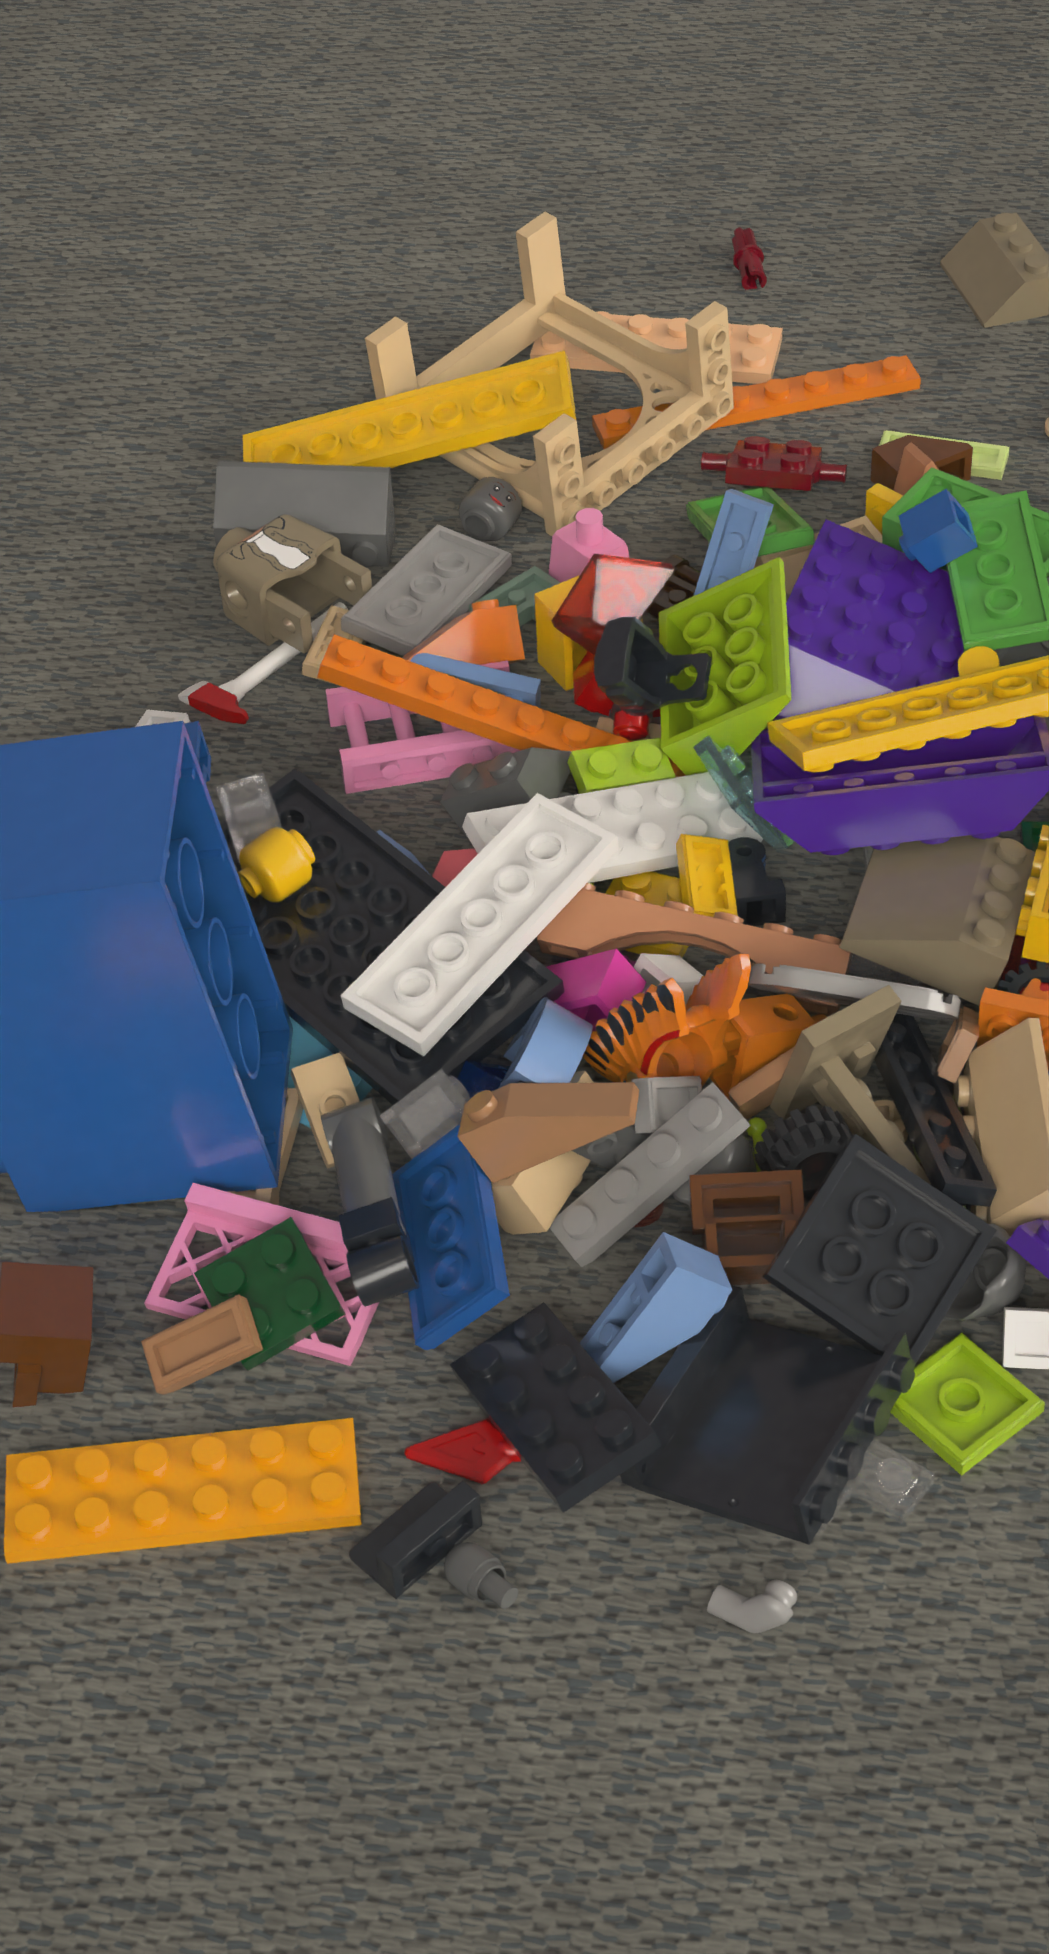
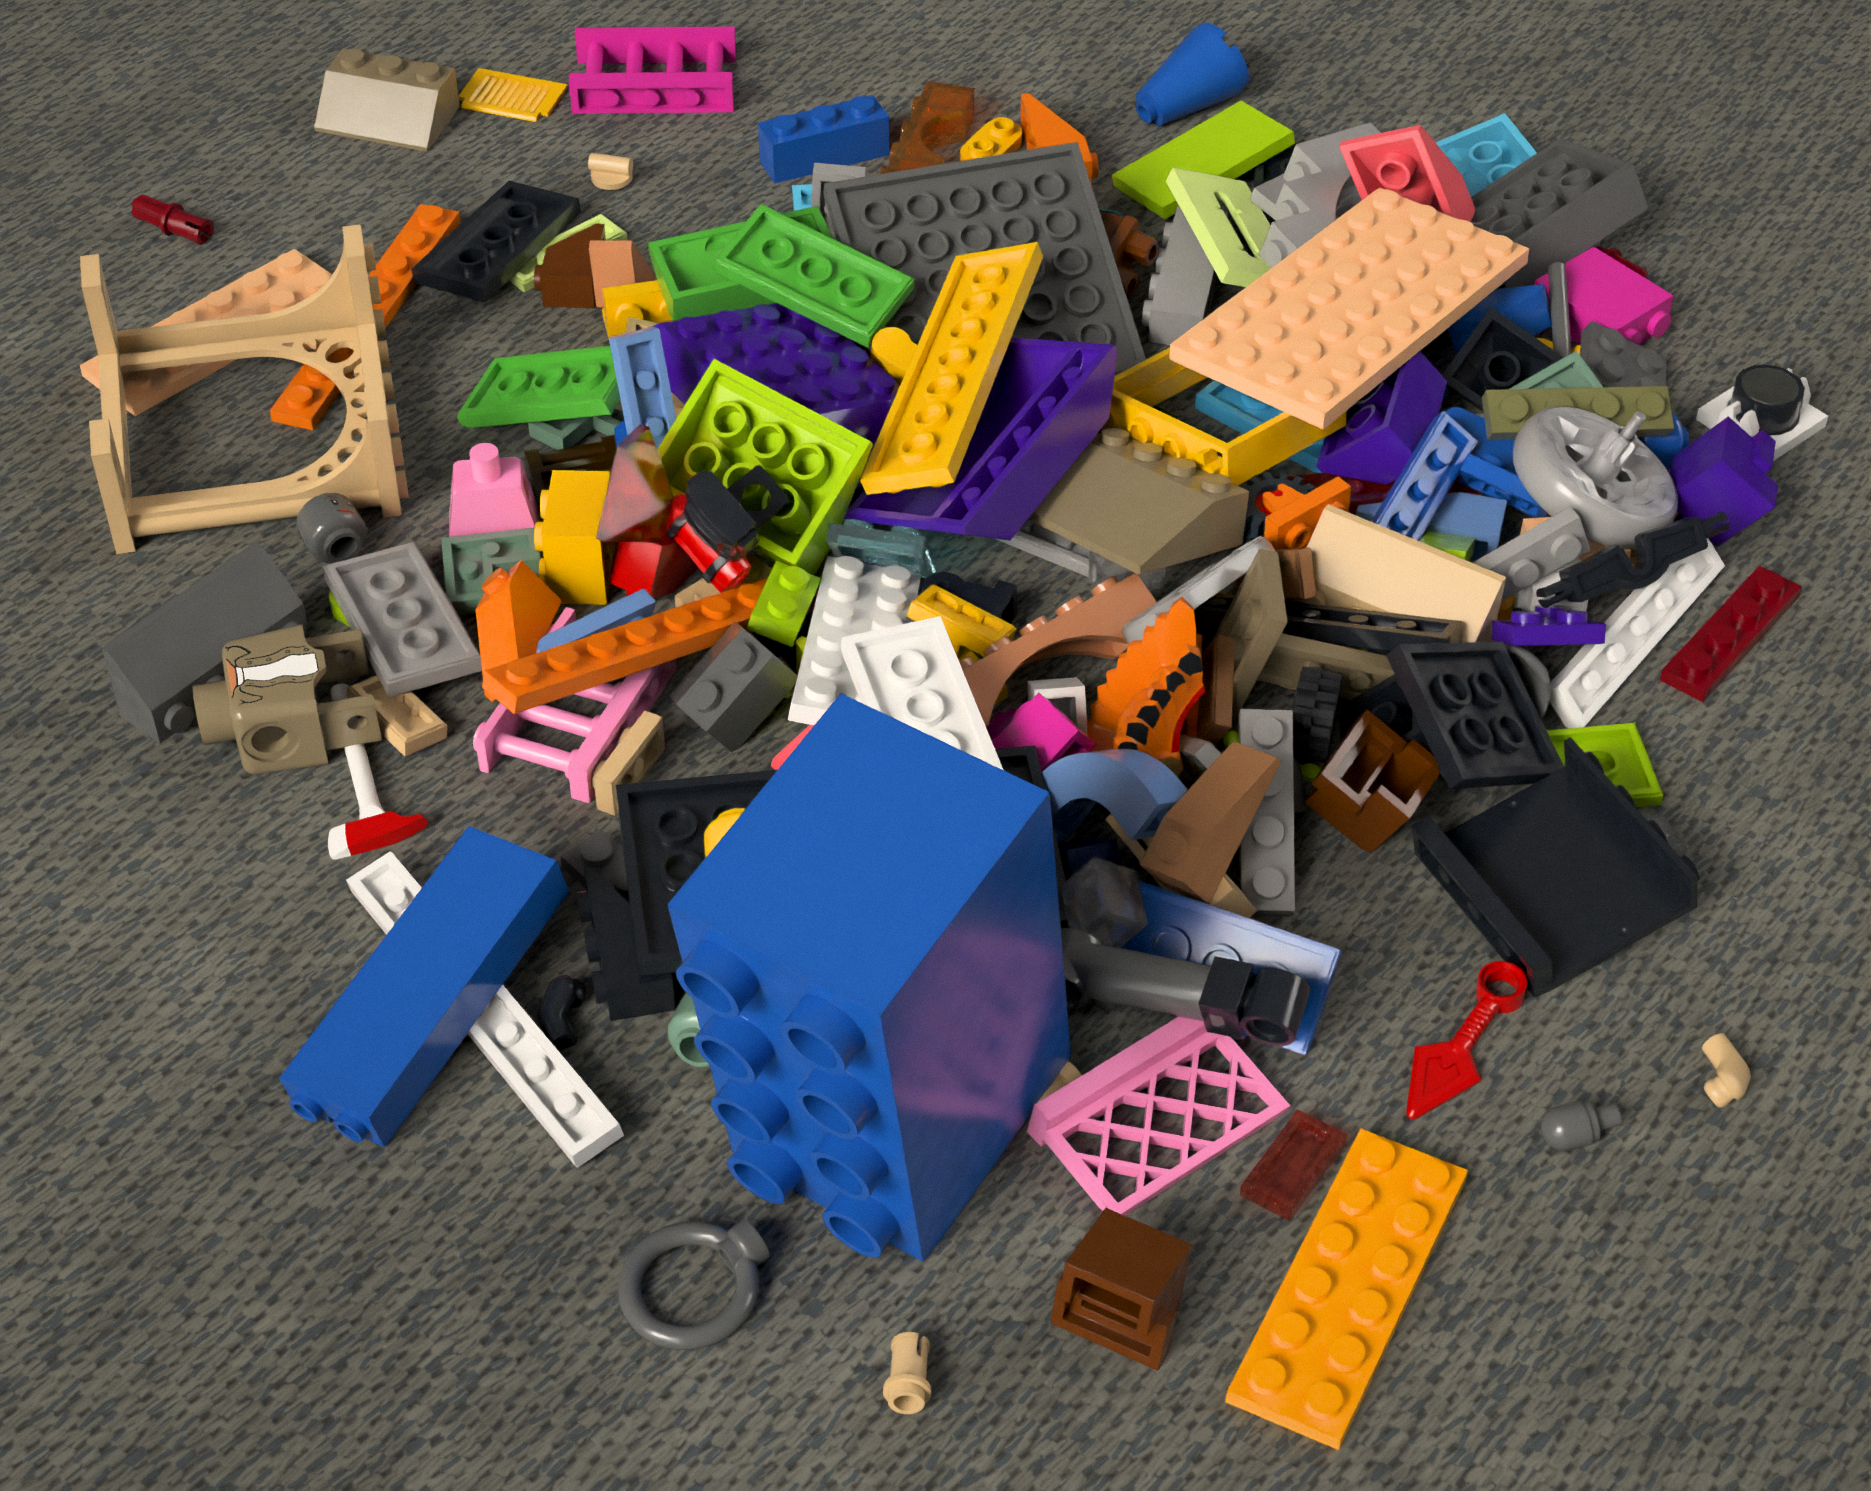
camera: 60 degrees left, 0 degrees up
(202, 1345) = (1216, 1188): medium nougat tile -> none
(247, 809) = (665, 838): clear brick -> none
(281, 1286) = (1194, 1115): dark green plate -> none
(286, 1393) = (1293, 1165): none -> clear red tile
(389, 785) = (630, 760): none -> tan plate
(418, 1536) = (1513, 1144): black panel -> none
(426, 419) = (176, 515): yellow plate -> none
(555, 1407) = (1457, 987): black plate -> none
(633, 1670) = (1731, 1070): none -> tan arm
(658, 1306) = (1422, 884): medium blue slope -> none
(754, 1613) = (1724, 977): light grey arm -> none
(774, 464) = (472, 342): dark red plate -> none
(916, 409) = (496, 241): none -> black plate
(936, 531) = (757, 271): blue brick -> none

